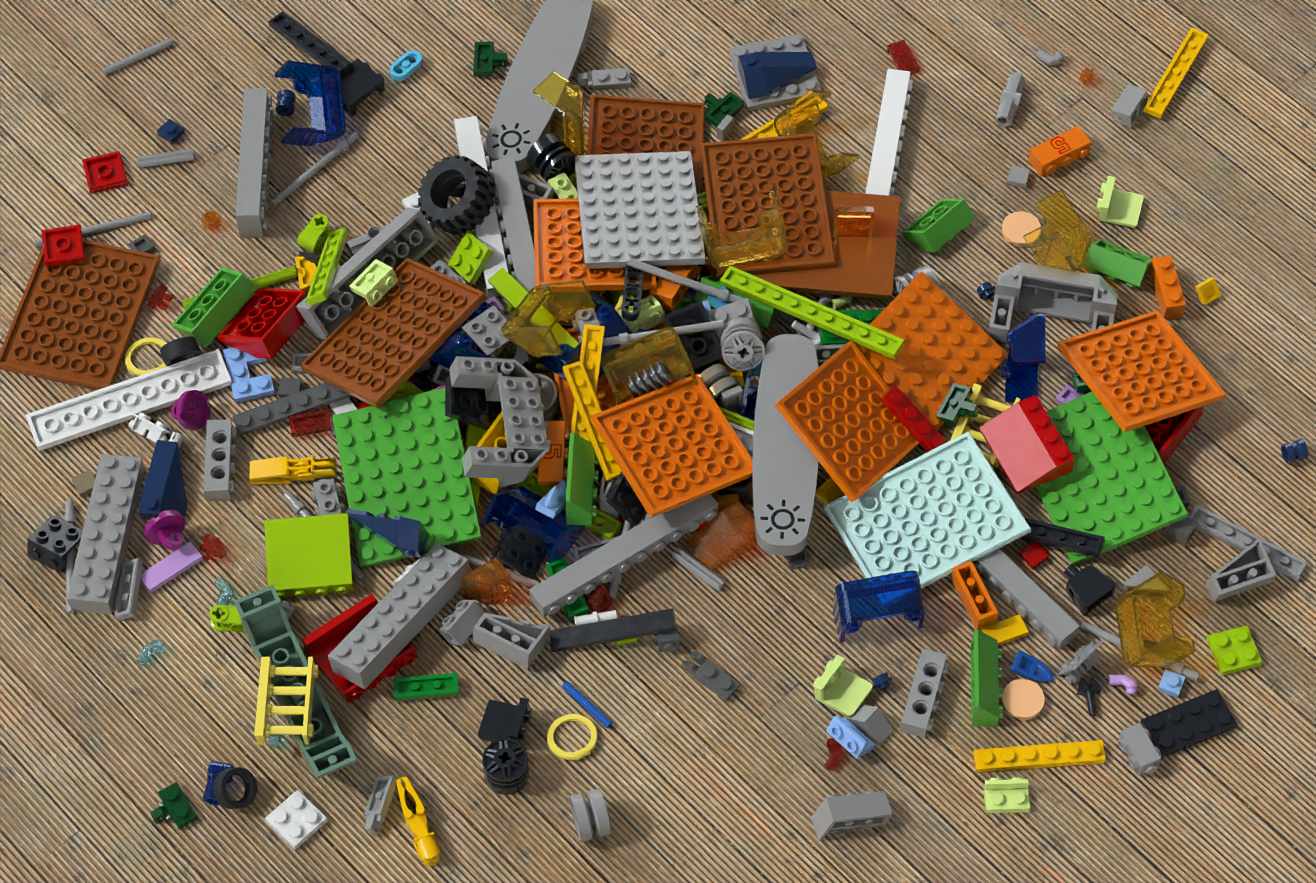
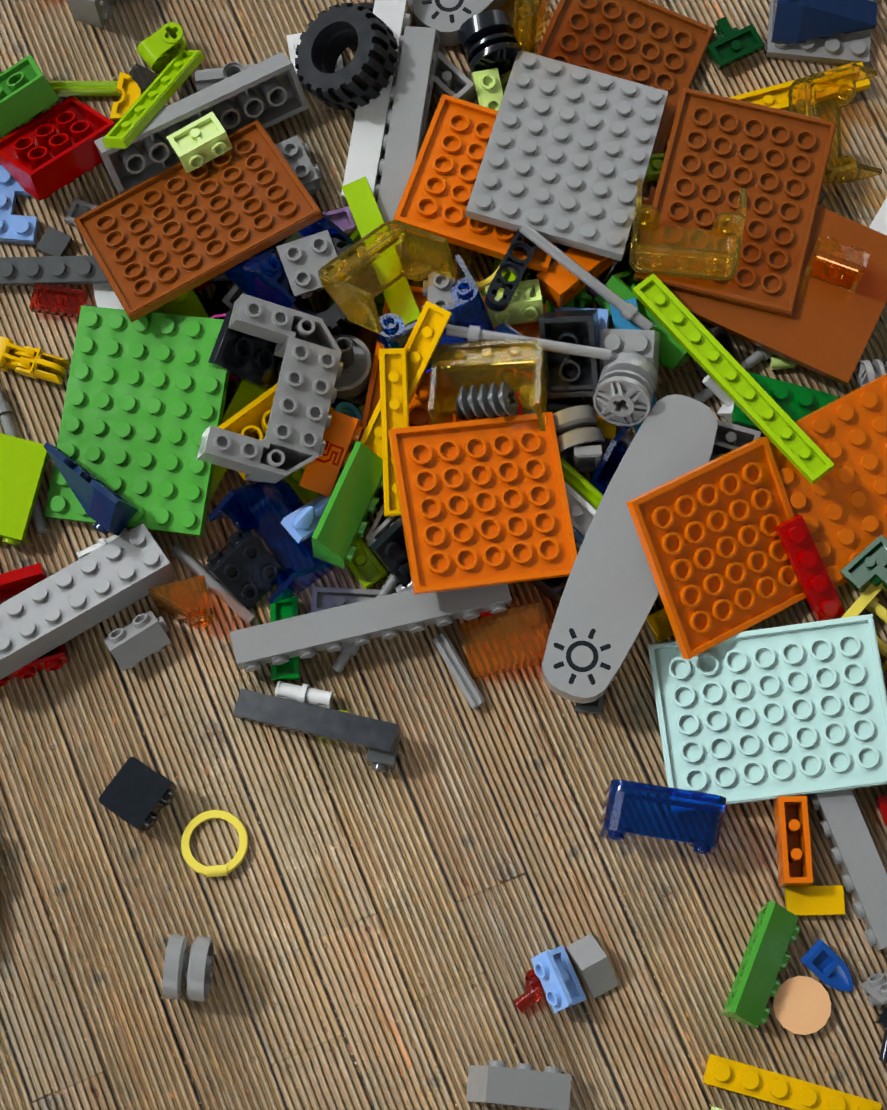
camera: 20 degrees right, 15 degrees up
(326, 497) = (38, 414): light grey brick -> none
(426, 686) = (61, 709): green plate -> none
(470, 257) = (337, 145): lime plate -> none
(509, 776) = (115, 875): black wheel -> none
(511, 639) = (188, 686): light grey wedge -> none
(587, 704) = (249, 806): blue bar -> none
(600, 600) = (318, 671): clear red tile -> none
(711, 676) = (419, 827): dark grey hinge -> none
(725, 128) = (726, 71): light grey tile -> none
(725, 500) = (526, 594): pearl gold bracket -> none
(841, 688) = (574, 906): yellowish green bracket -> none
(882, 681) = (629, 913): dark blue plate -> none
(915, 723) = (644, 983): light grey brick -> none

